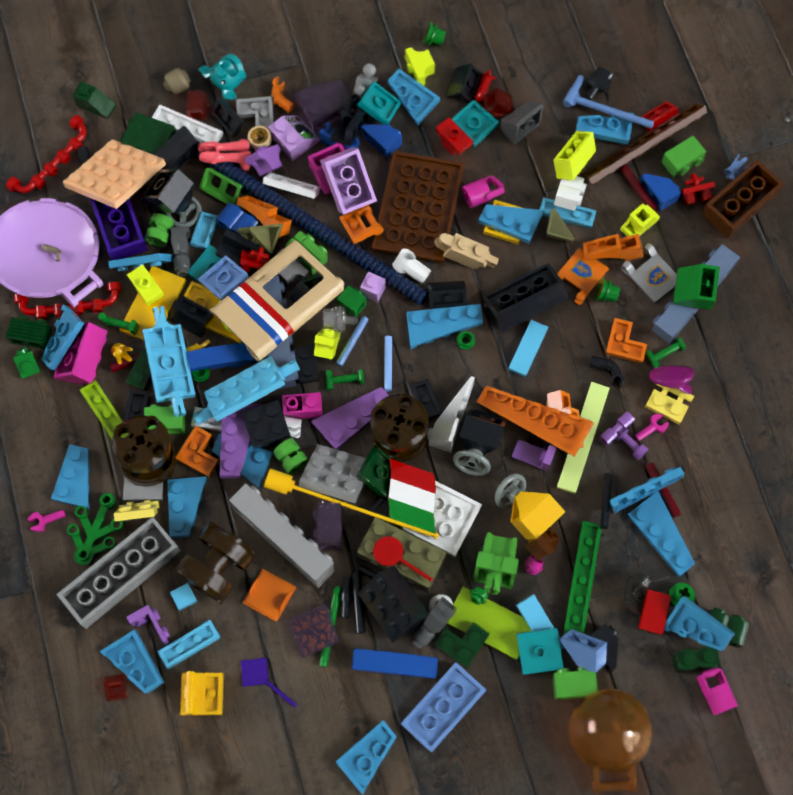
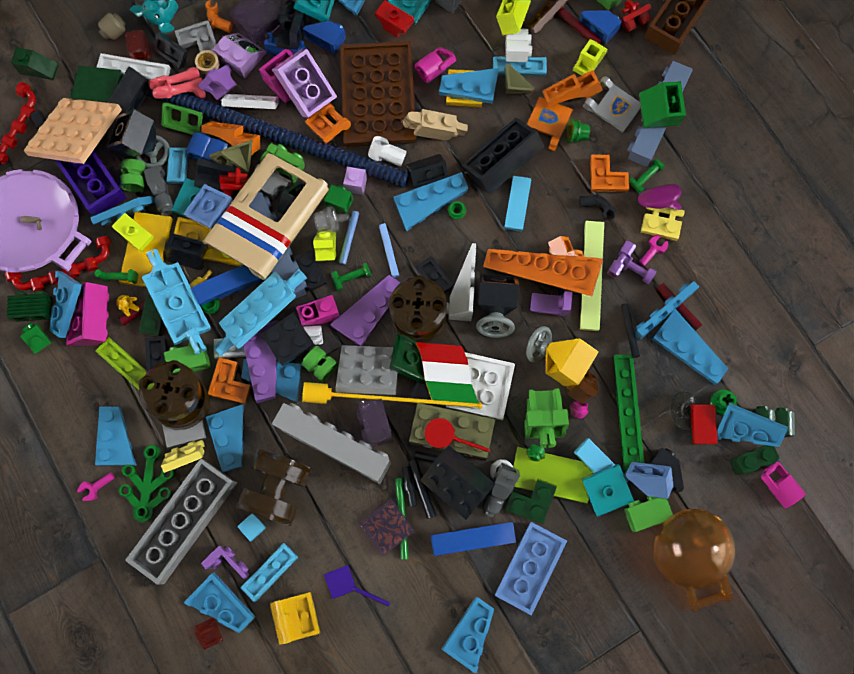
camera: 15 degrees left, 5 degrees up
(269, 595) = (334, 503): orange piece -> none

